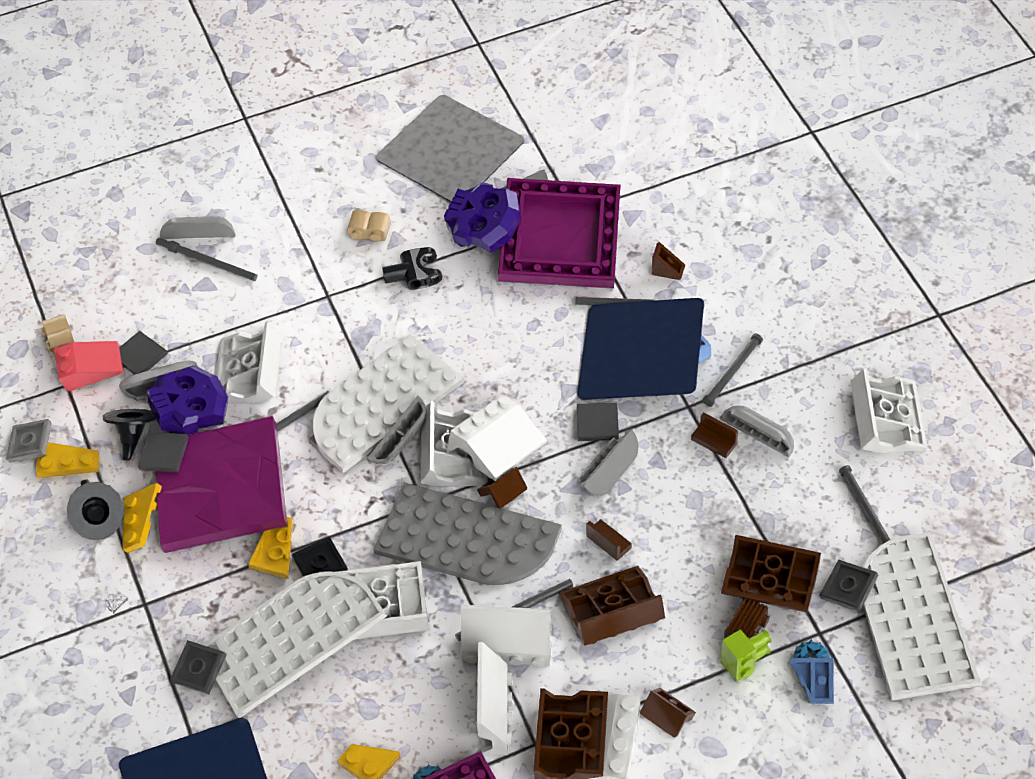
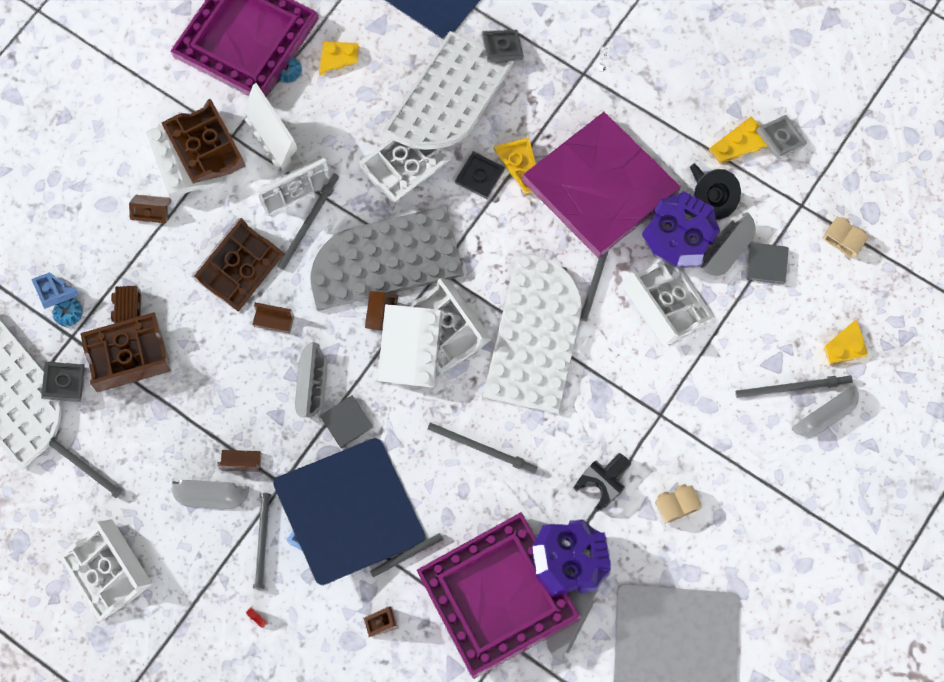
camera: 150 degrees right, 20 degrees up
(87, 363) = (796, 224): coral slope -> none
(95, 510) = (677, 108): piece -> none
(137, 265) = (846, 345): none -> yellow wing
(137, 515) = (643, 127): yellow wing -> none
(163, 452) = (664, 179): dark grey tile -> none
(400, 433) = (491, 303): light grey brick -> none
(473, 319) = (517, 462): none -> dark grey bar
(740, 653) = (112, 272): lime brick -> none
(772, 318) = (253, 615): none -> red tile

